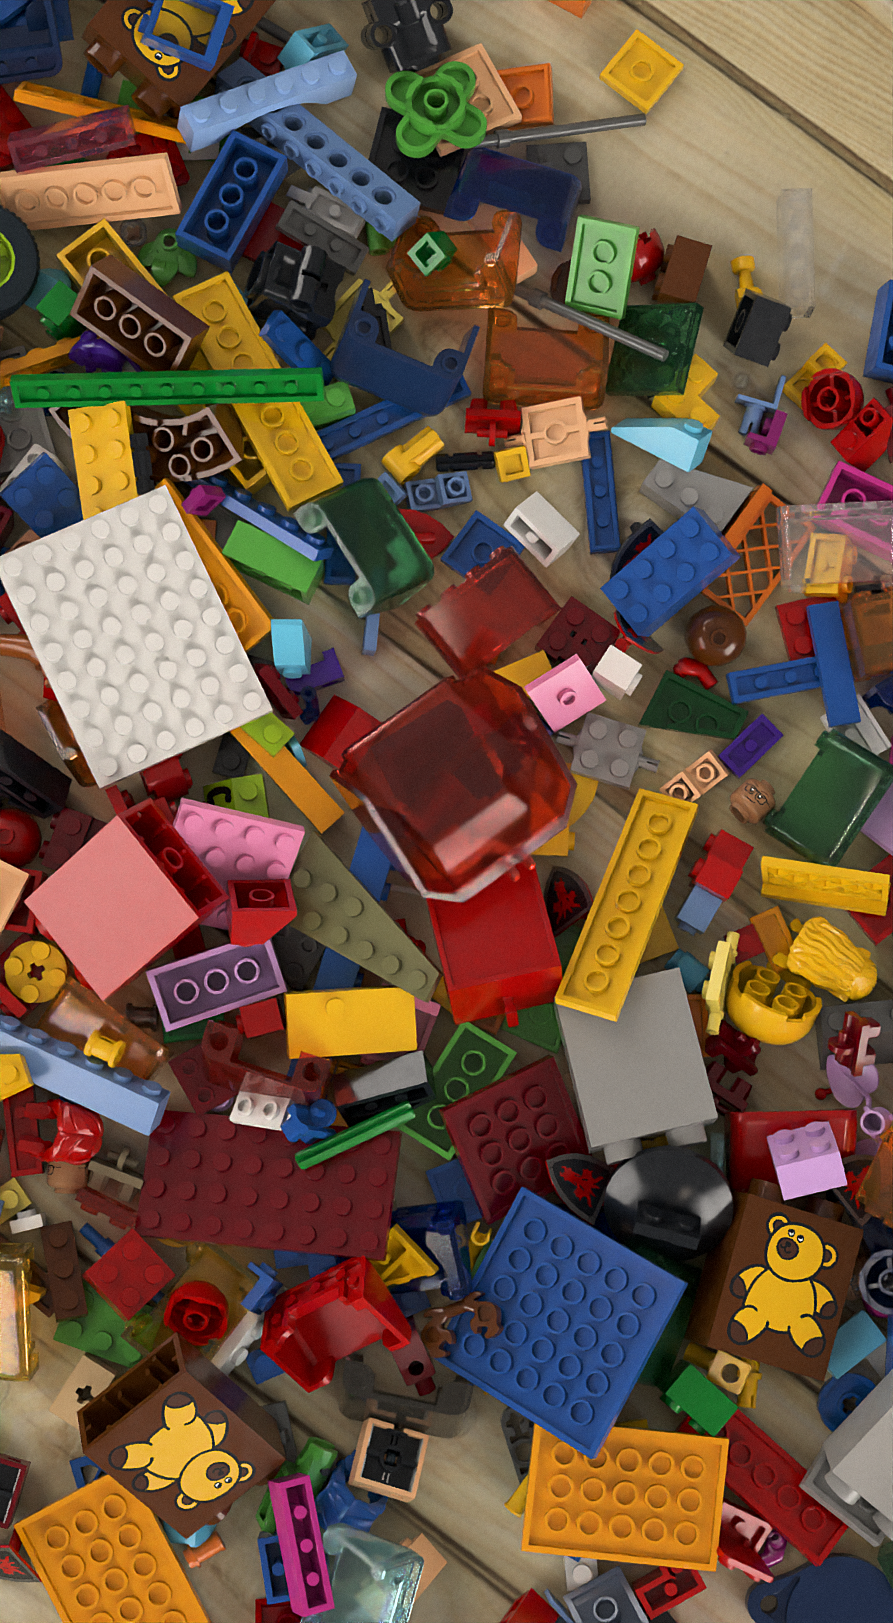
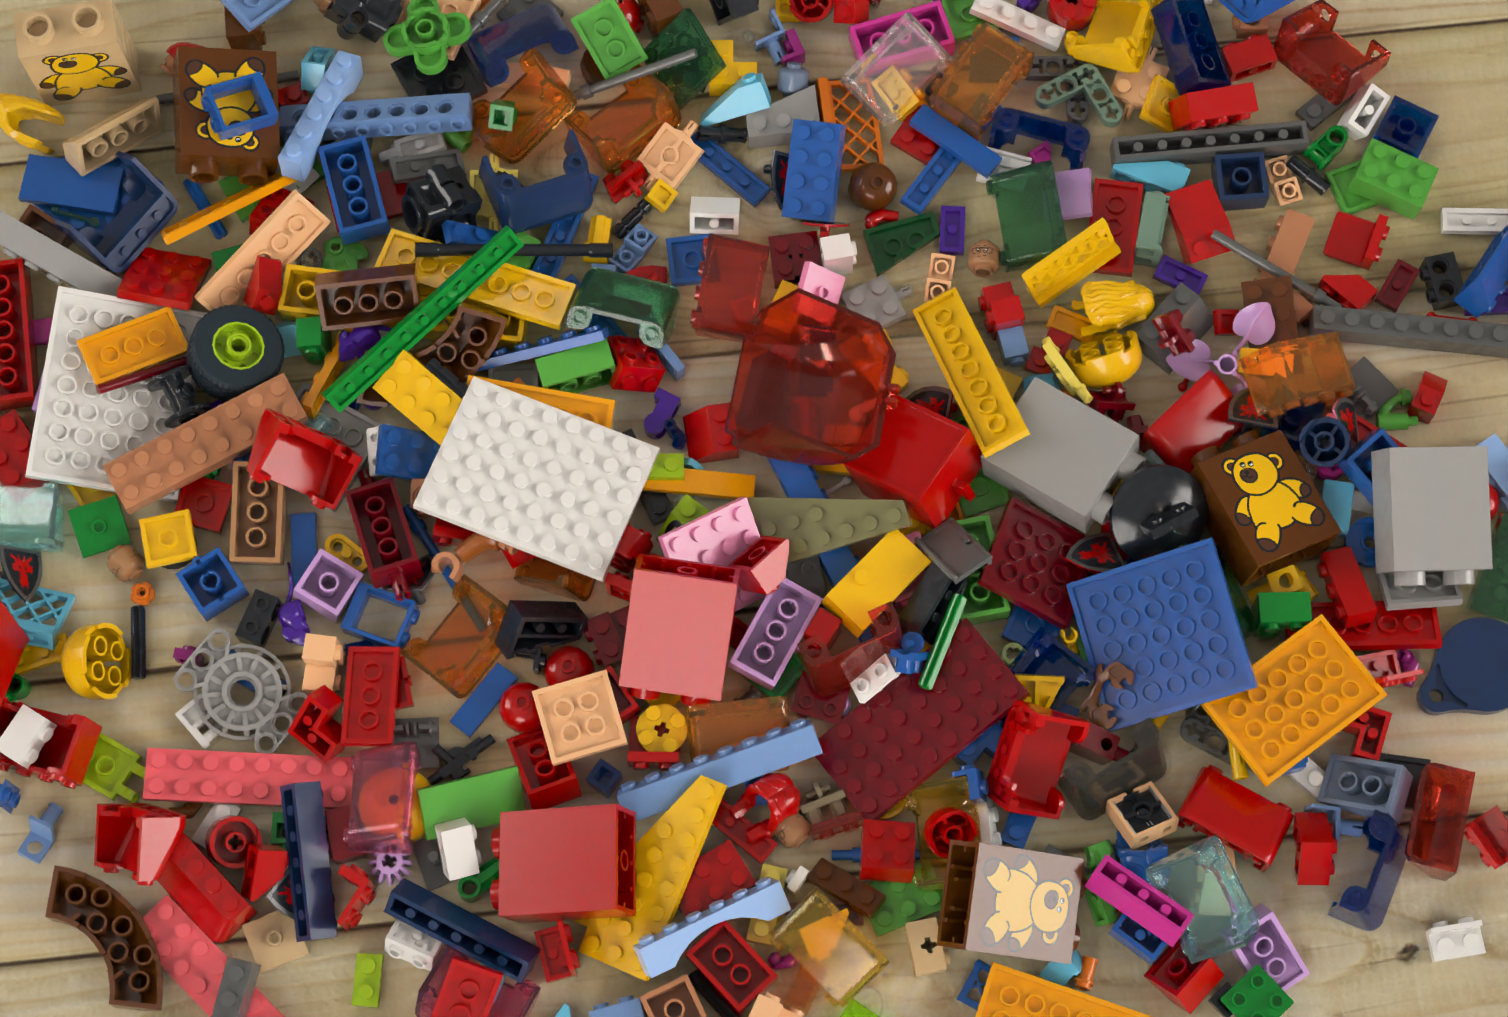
camera: 35 degrees left, 10 degrees down
(64, 221) = (265, 285): none -> red slope
(72, 138) = (226, 233): clear pink brick -> none
(104, 1048) = (748, 726): yellow bush -> none
(203, 500) = (503, 366): magenta plate -> none
(281, 698) = (659, 440): dark red plate -> none
(291, 647) = (635, 404): medium azure slope -> none
(327, 608) = (637, 365): none -> red bracket
(394, 461) = (592, 250): none -> black piece
(426, 1190) = (1012, 647): none -> yellowish green bush
(441, 1055) = (953, 550): none -> dark grey door
(471, 1540) = (1235, 816): none -> red windscreen
(623, 455) = (721, 134): none -> black pin
(706, 943) = (1036, 362): none -> red plate
(739, 462) = (792, 78): none -> sand blue head
(783, 1429) = (1346, 587): none -> red brick
(806, 1160) = (1210, 416): lavender brick -> none

